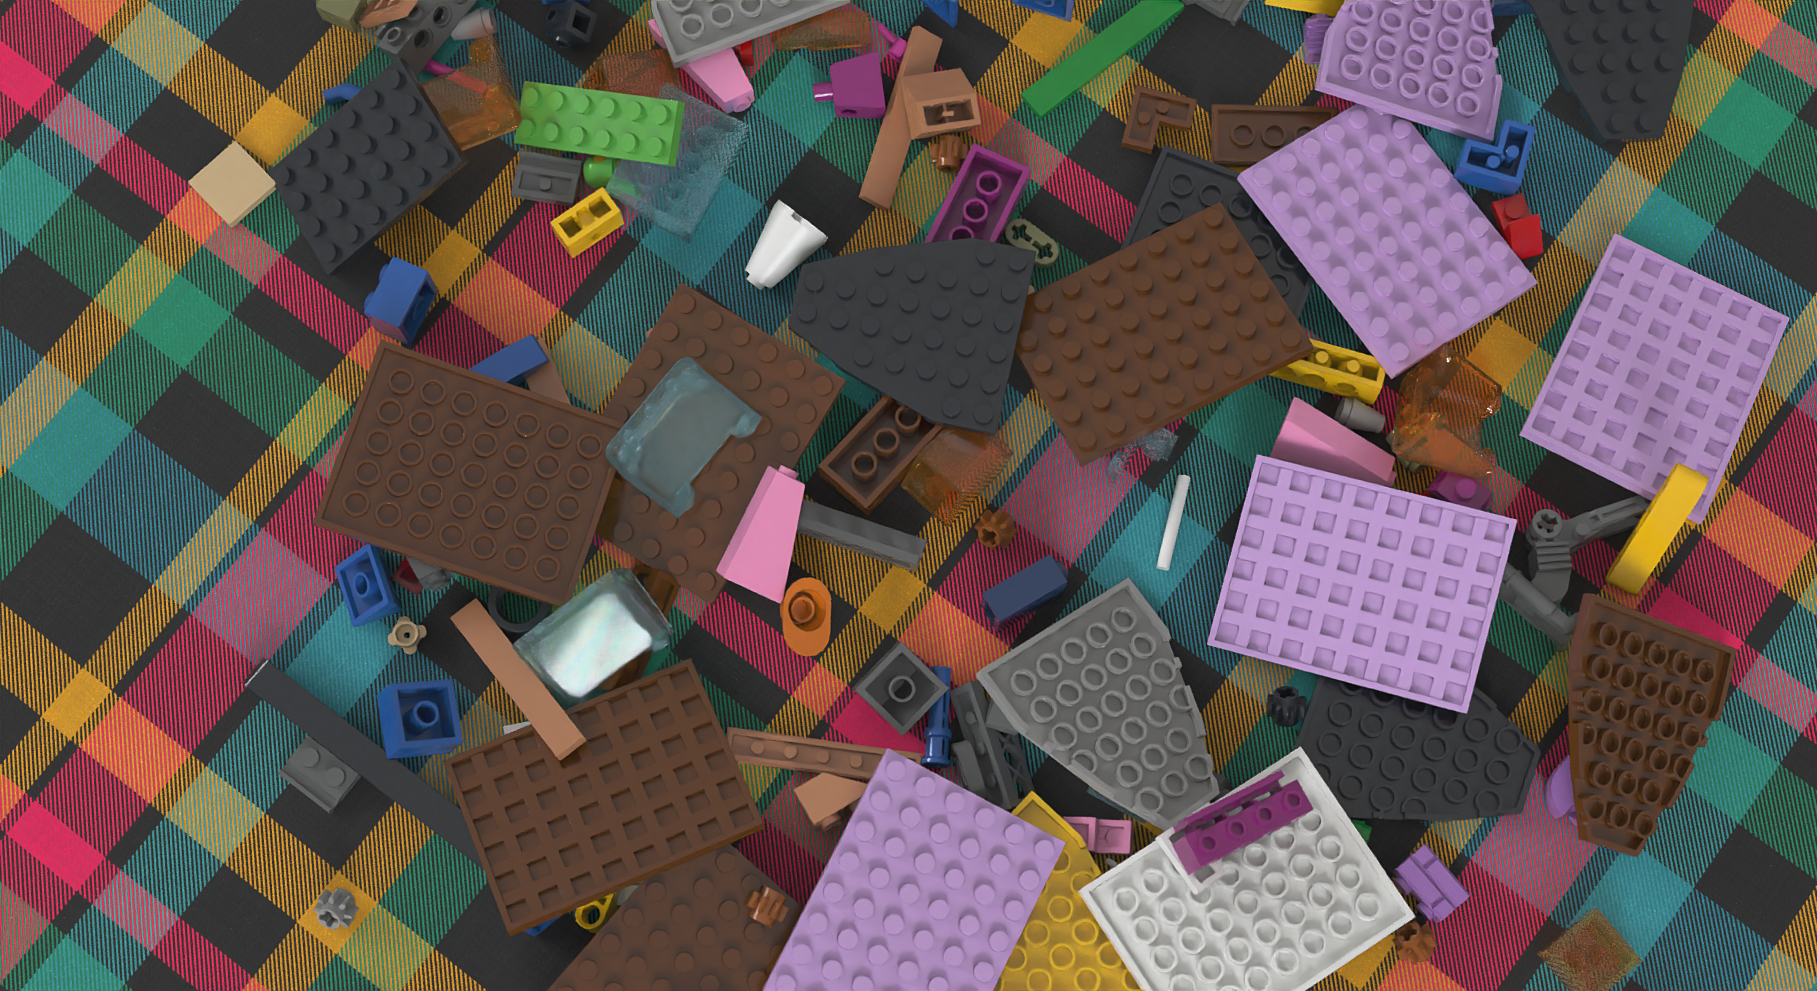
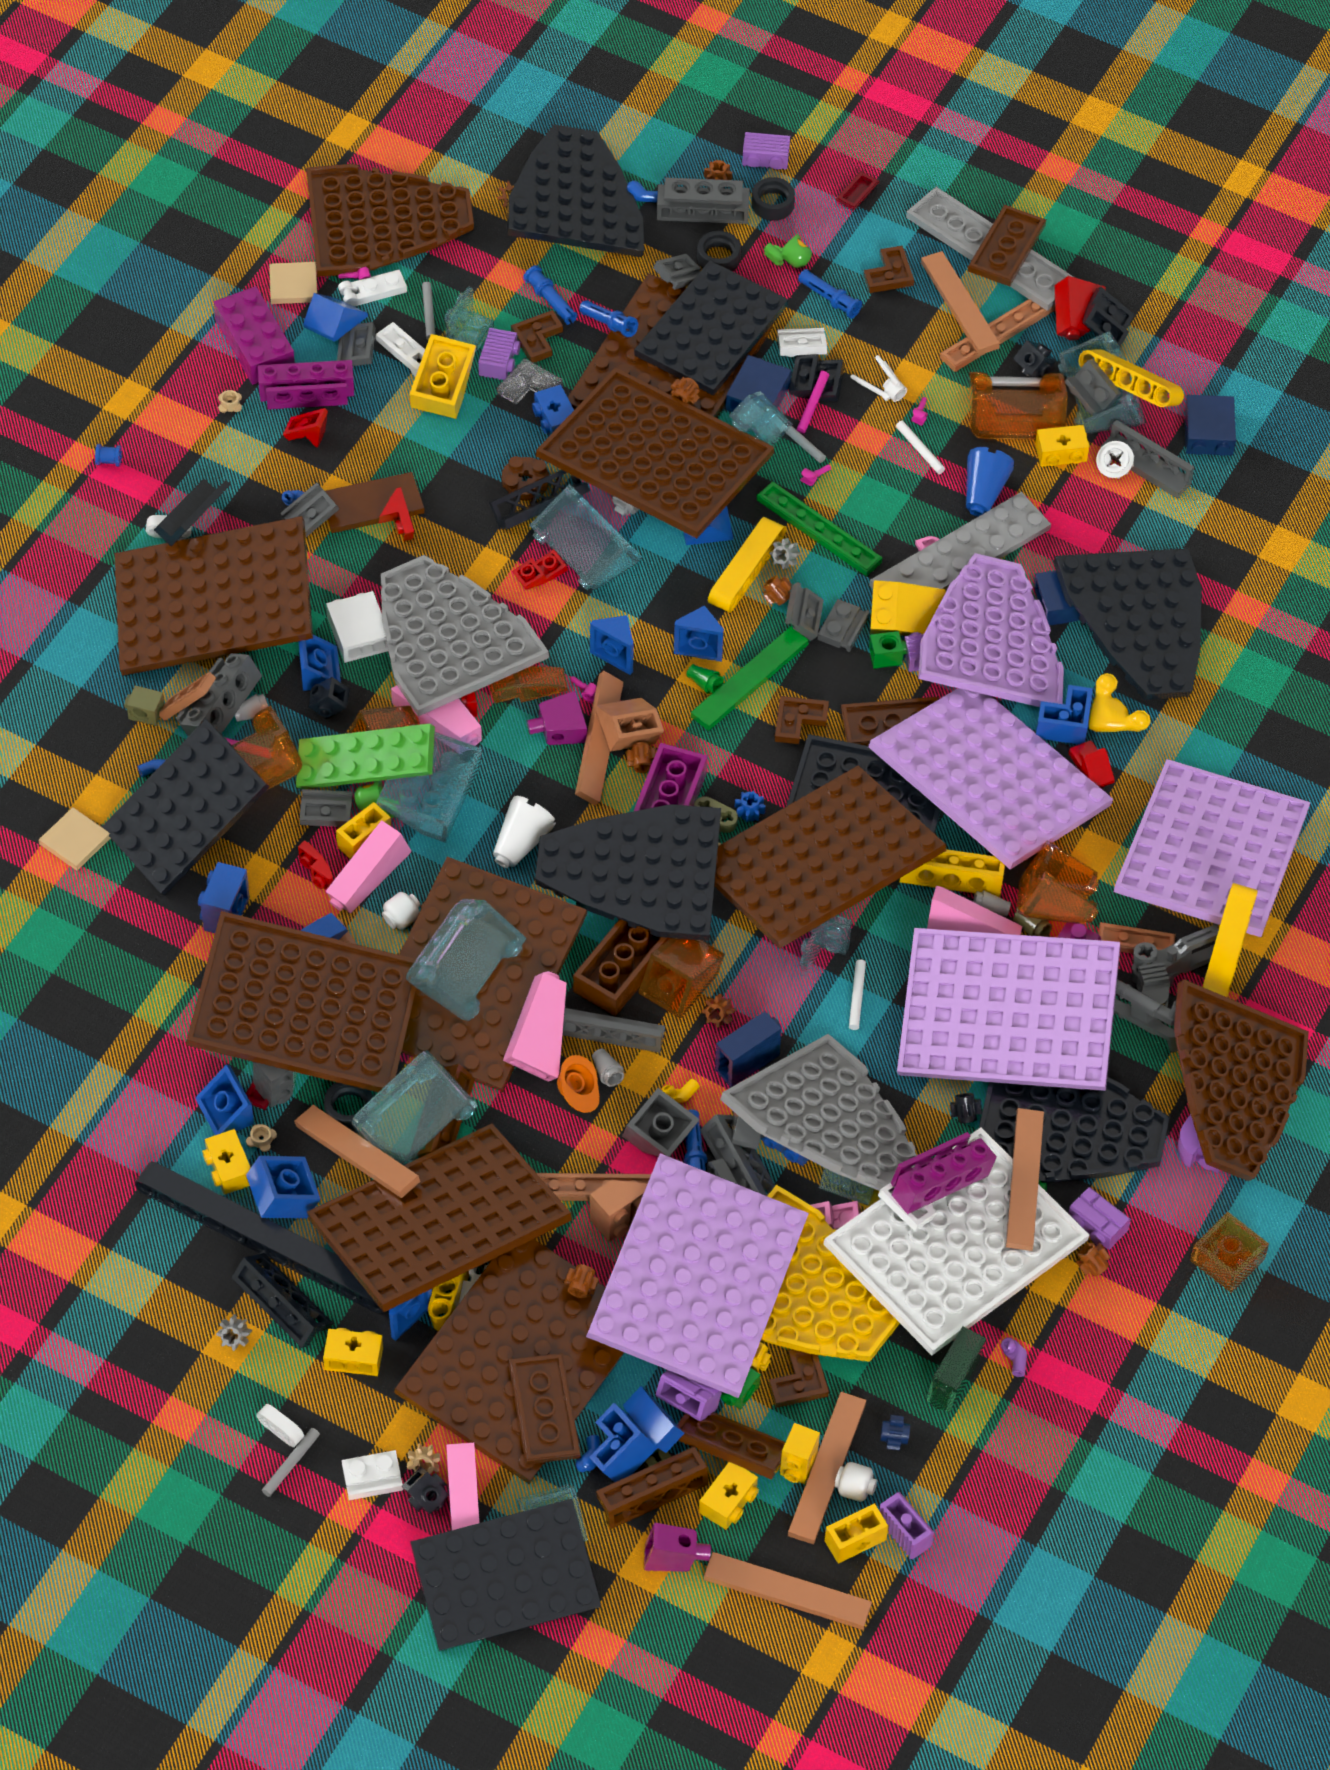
camera: 10 degrees left, 20 degrees down
(319, 774) = (204, 1243): dark grey plate -> none
(363, 648) = (223, 1149): none -> yellow brick
(396, 867) = (279, 1300): none -> black fence
(458, 951) = (341, 1357): none -> yellow brick
(526, 269) = (313, 860): none -> red slope
(586, 274) = (368, 867): none -> bright pink slope
(620, 337) = (401, 910): none -> white head
(846, 591) = (608, 1068): none -> light grey cone
(931, 639) = (682, 1095): none -> yellow arm
(1046, 47) = (705, 678): none -> green cone
(1067, 236) = (750, 806): none -> blue gear
(1273, 42) = (879, 651): none -> green brick
(1345, 831) = (1024, 1179): none -> nougat tile
(1537, 488) = (1131, 936): none -> nougat tile
(1553, 160) = (1110, 714): none -> yellow head

